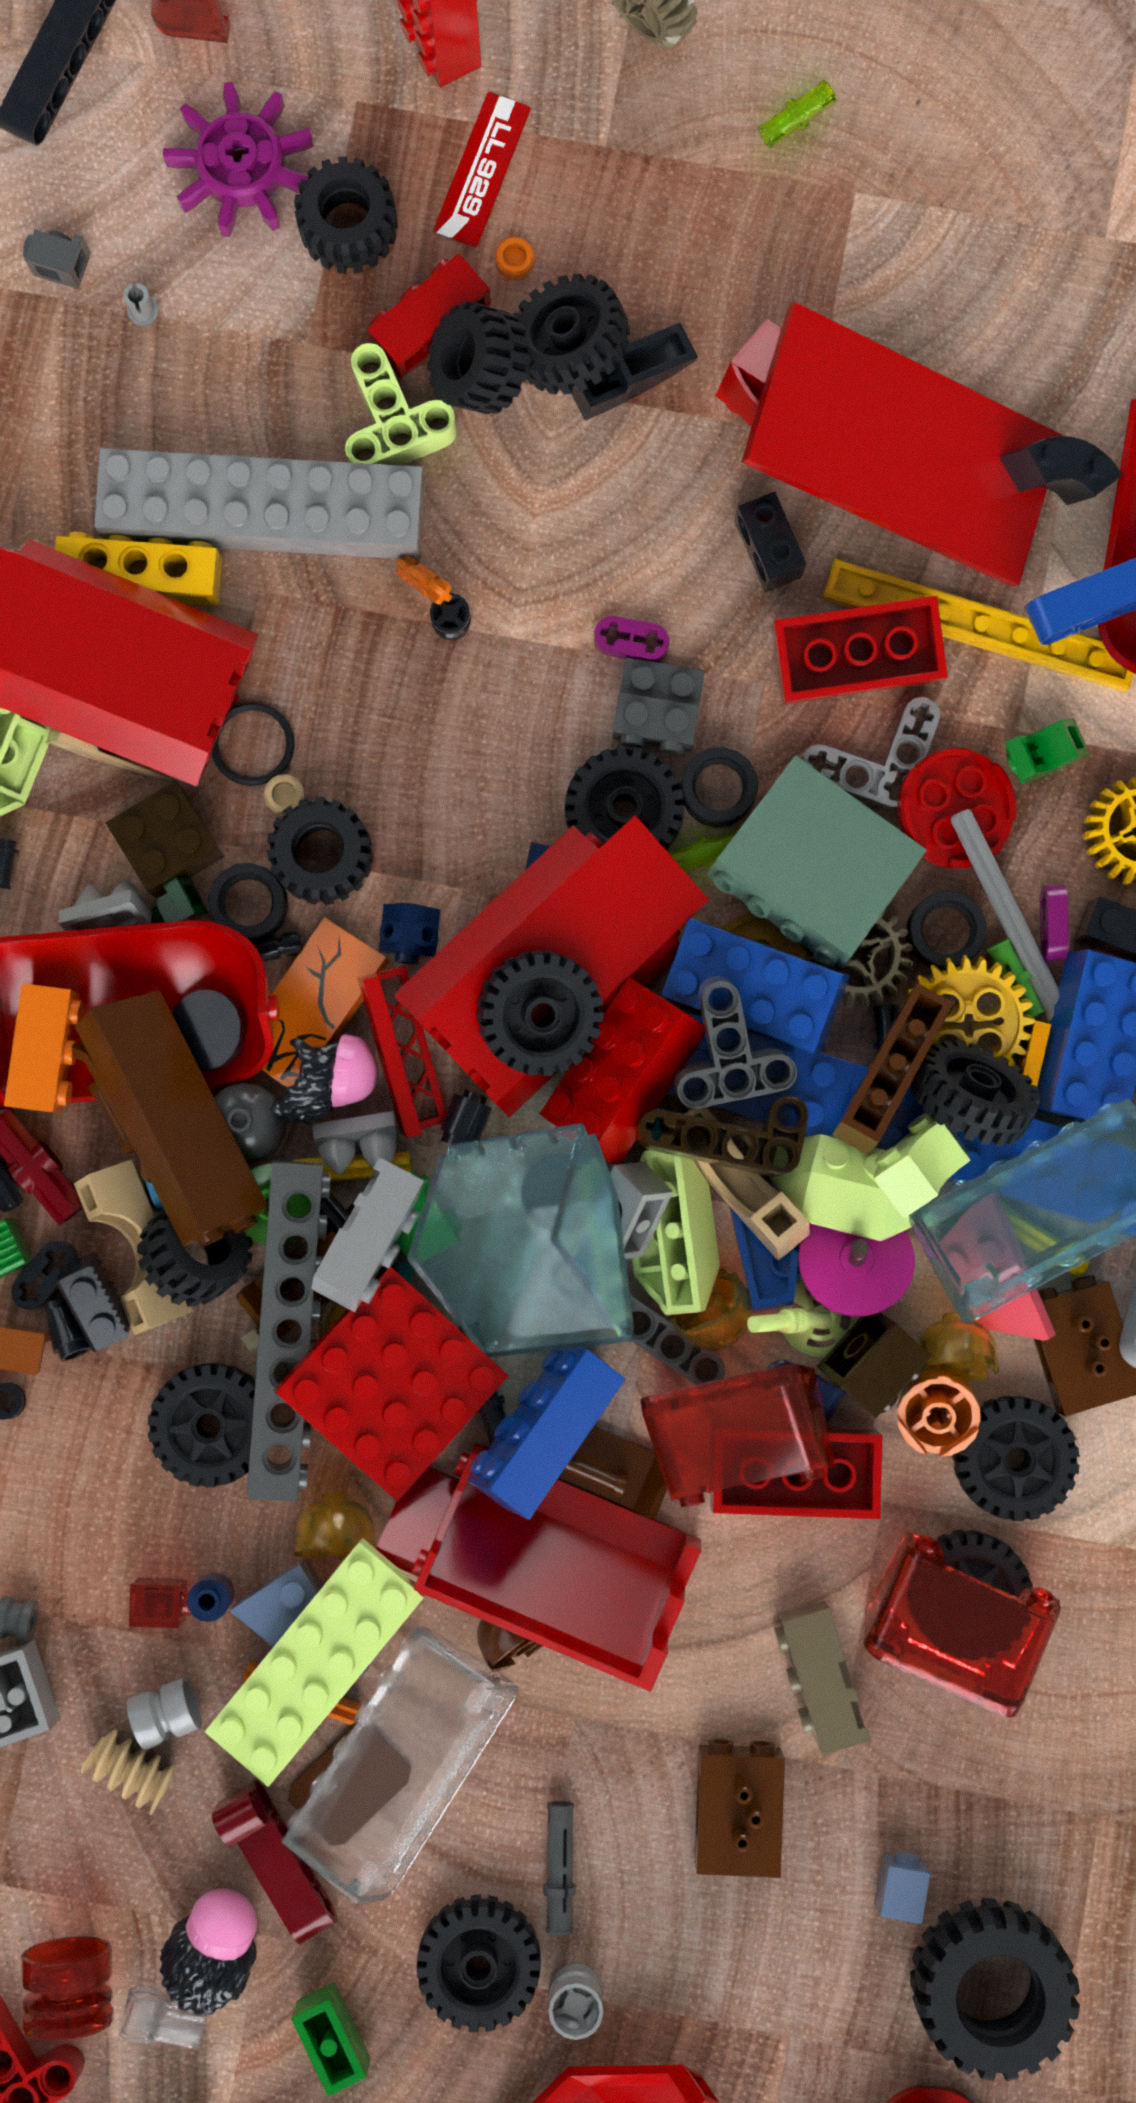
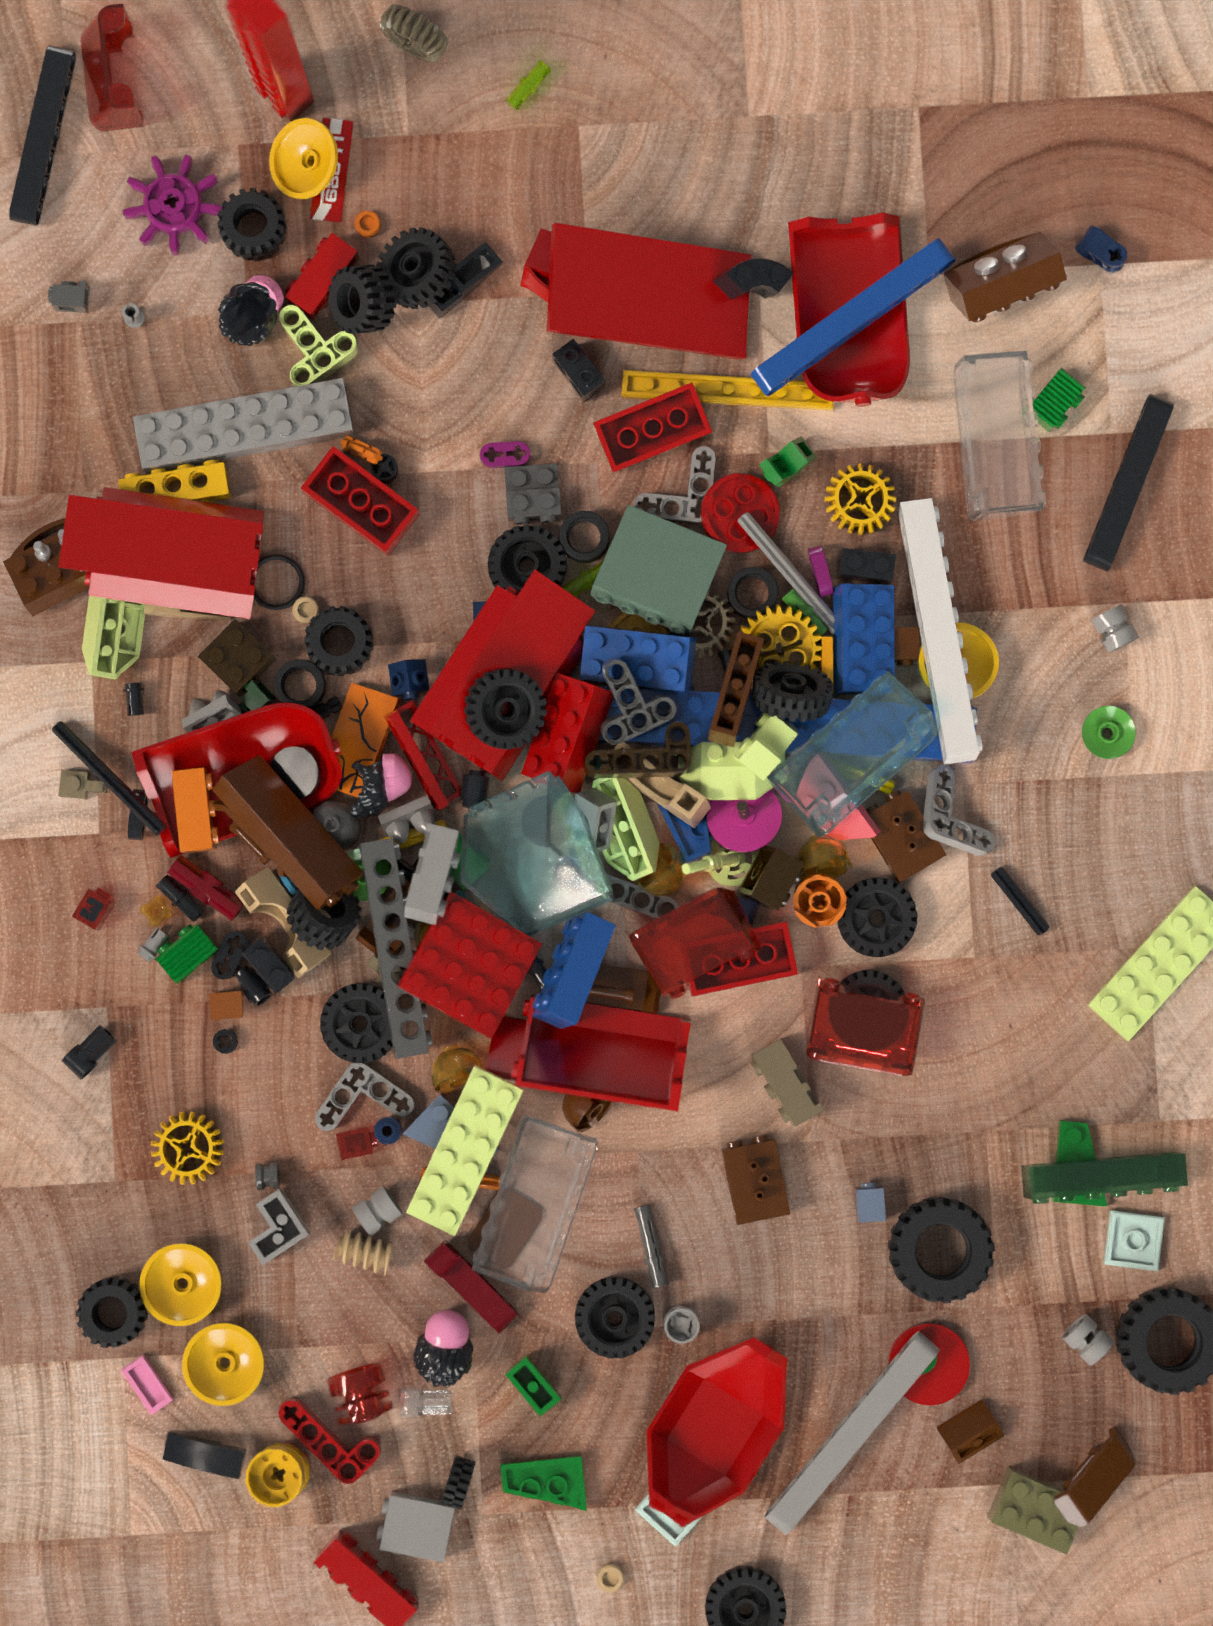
camera: 15 degrees left, 0 degrees up
(195, 1521) = (366, 1087): none -> light grey beam
(312, 337) = (250, 310): none -> black hair
(403, 653) = (360, 501): none -> red brick
(445, 137) = (294, 155): none -> yellow dish

